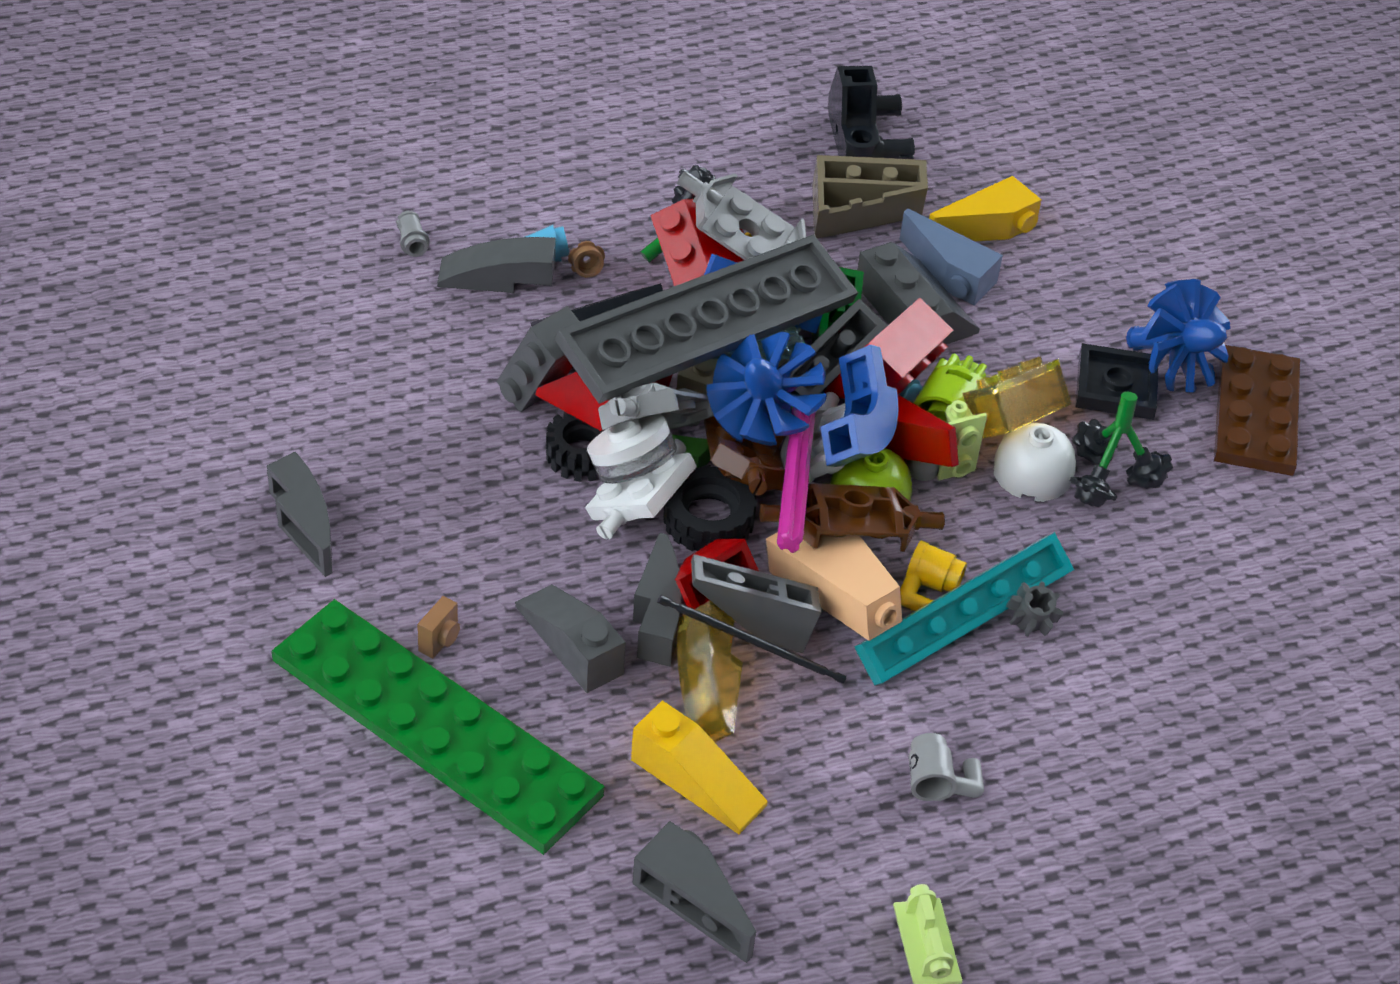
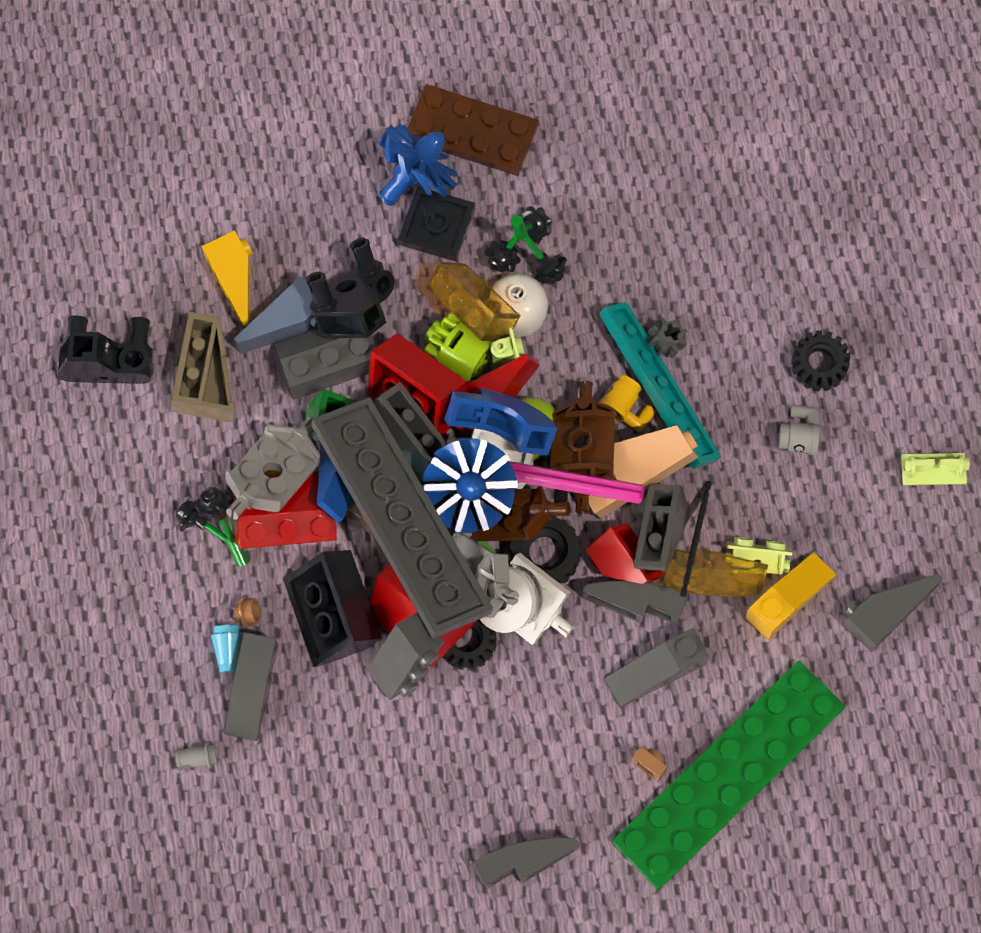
camera: 75 degrees left, 25 degrees up
(754, 745) = (771, 554): none -> yellowish green hinge
(996, 300) = (353, 303): none -> black piece
(1051, 808) = (829, 345): none -> black tyre

